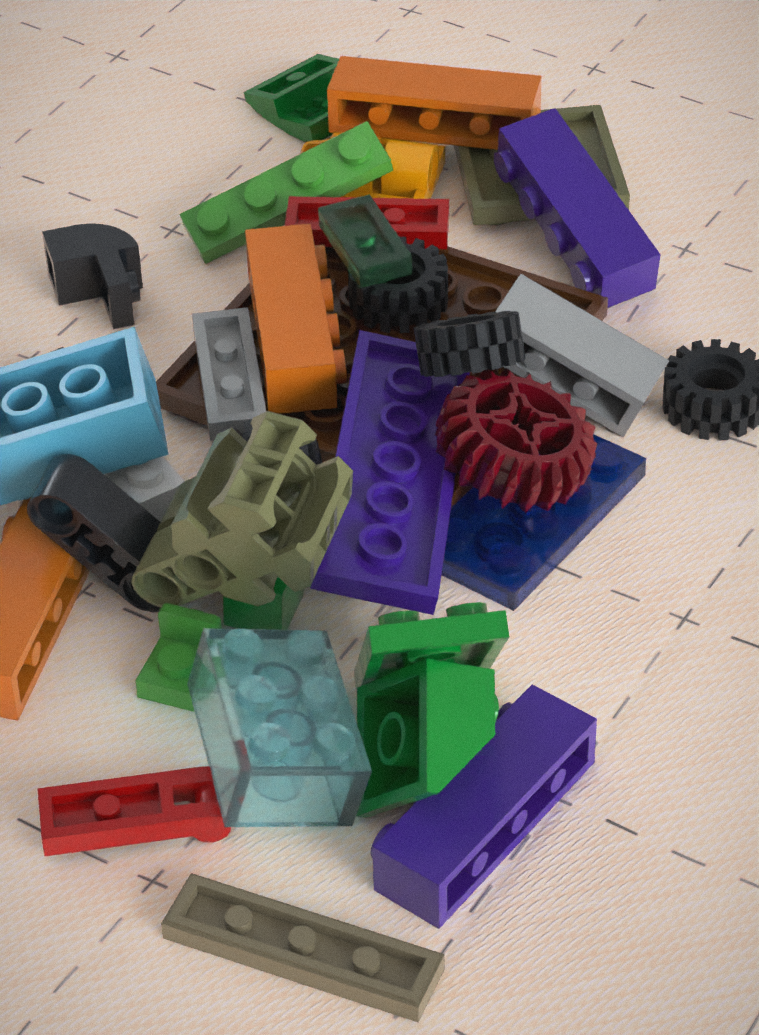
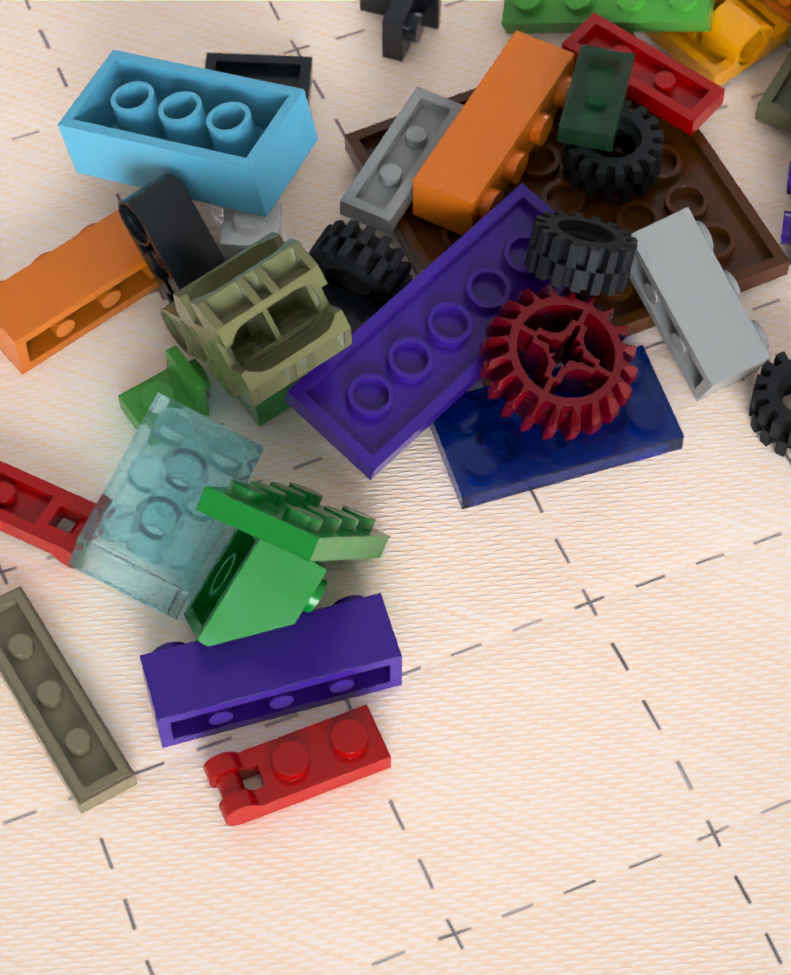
camera: 35 degrees right, 15 degrees up
(575, 866) = (298, 765): none -> red plate

